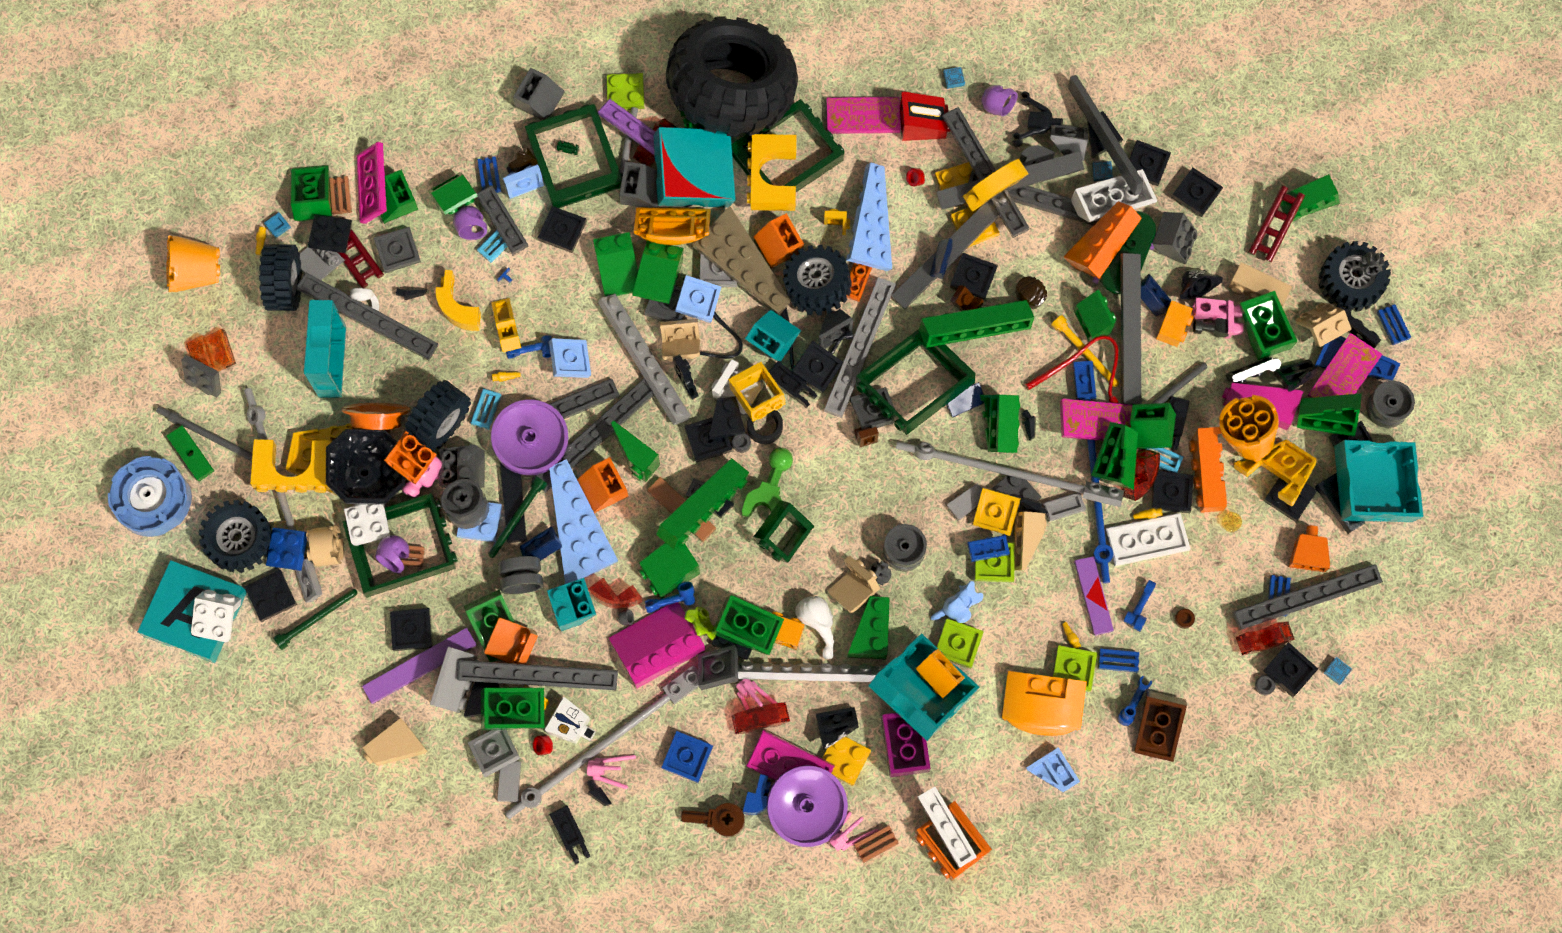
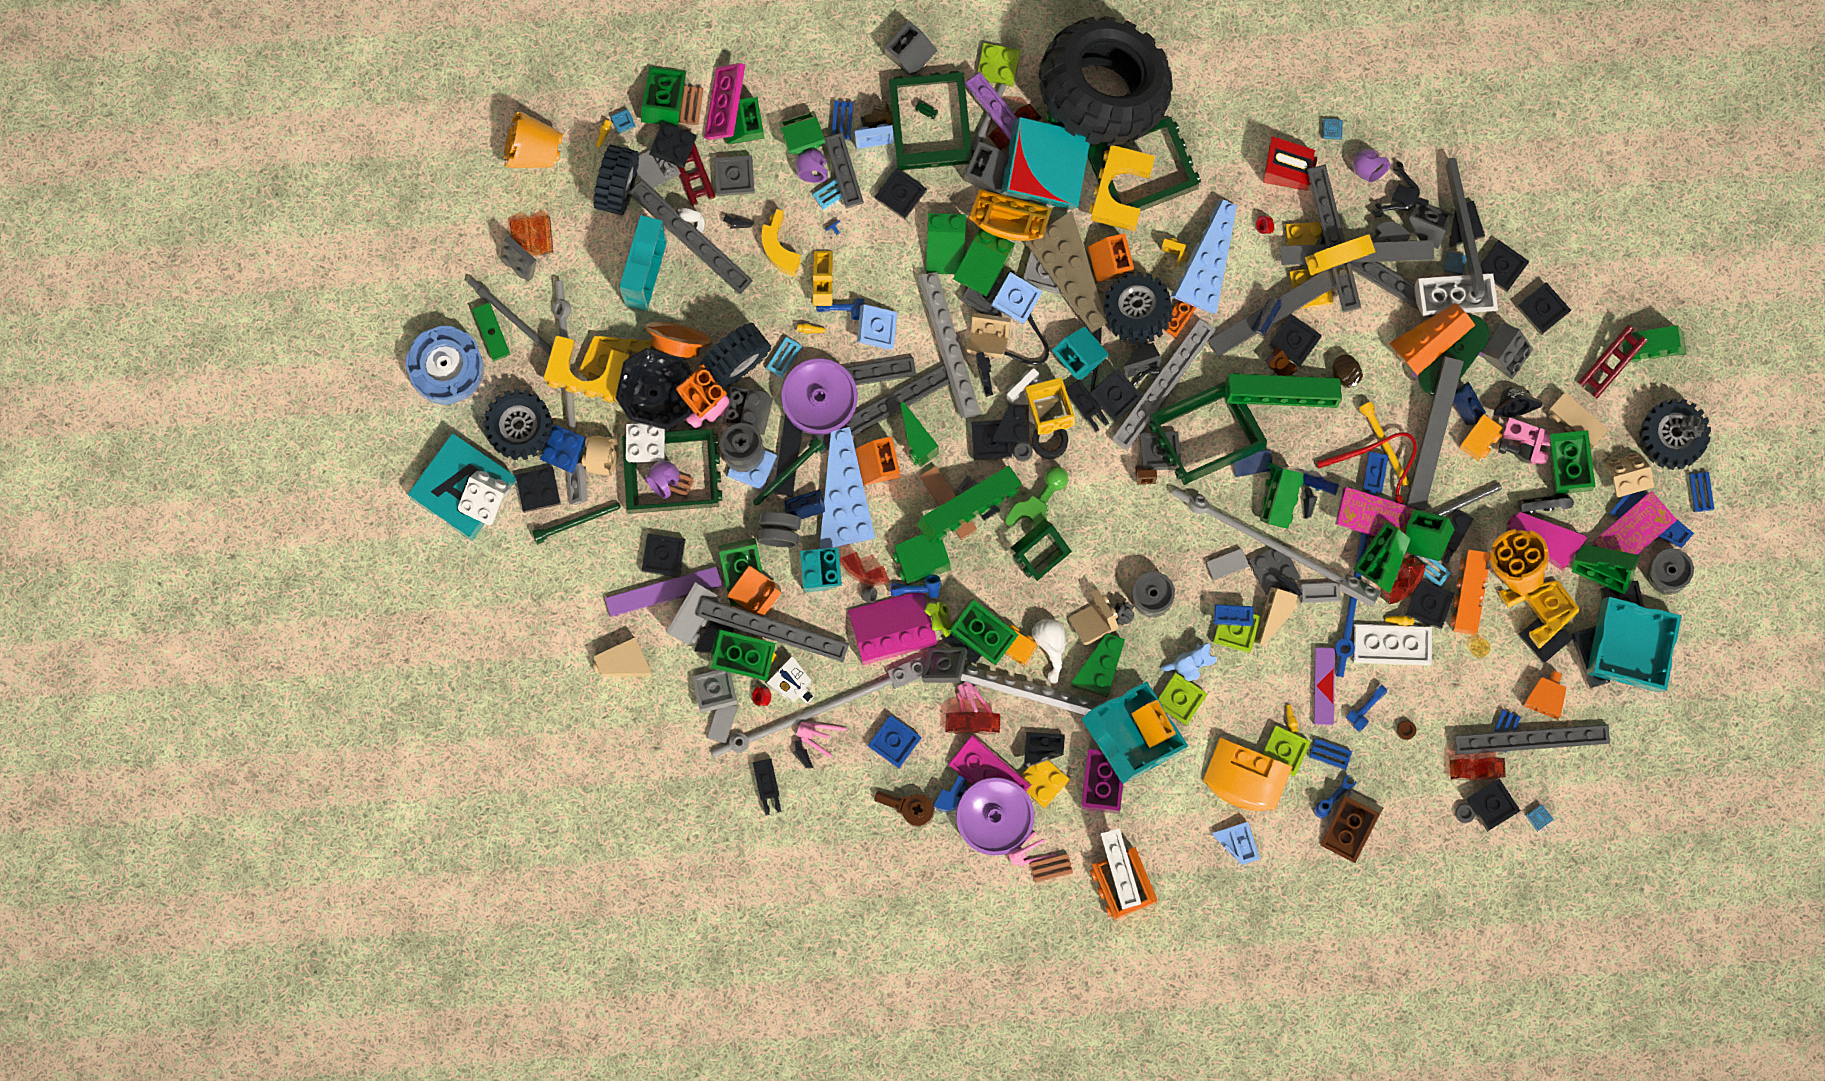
camera: 20 degrees right, 5 degrees up
(863, 115) = (1230, 146): dark pink tile -> none
(996, 511) = (1252, 581): yellow plate -> none
(1036, 403) = (1320, 484): none -> clear blue pin
(1095, 316) = (1403, 412): green slope -> none
(1295, 374) = (1586, 518): black wing -> none
(1360, 331) = (1662, 487): black hinge -> none

